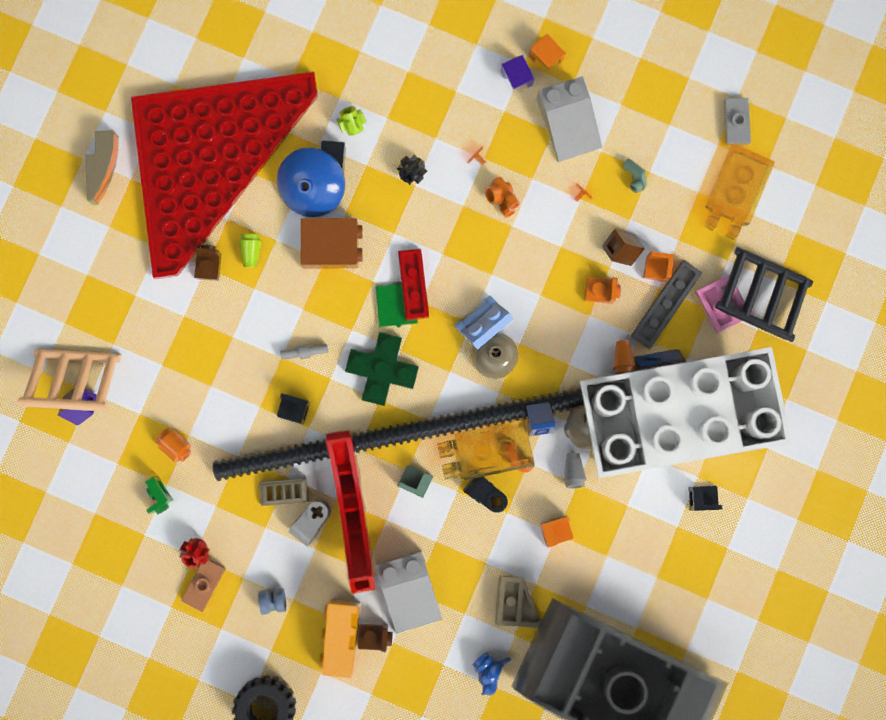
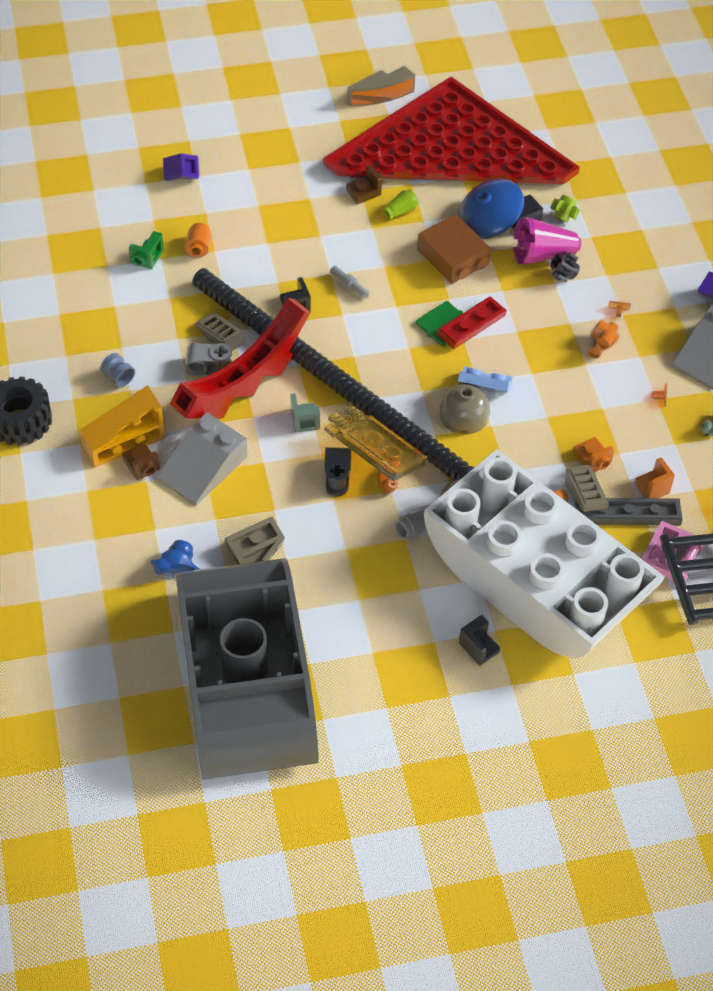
camera: 55 degrees right, 30 degrees down
(76, 401) = (187, 154): light nougat bar -> none
(194, 552) = (118, 296): red gear -> none
(203, 585) = (95, 321): nougat plate -> none
(377, 168) = (542, 241): none -> dark pink cone
(381, 369) = (381, 341): dark green plate -> none
(540, 419) = (433, 464): blue slope -> none
(556, 531) = (348, 539): orange panel -> none
(622, 329) = (584, 485): none -> dark tan slope
(623, 247) = (645, 446): reddish brown panel -> none

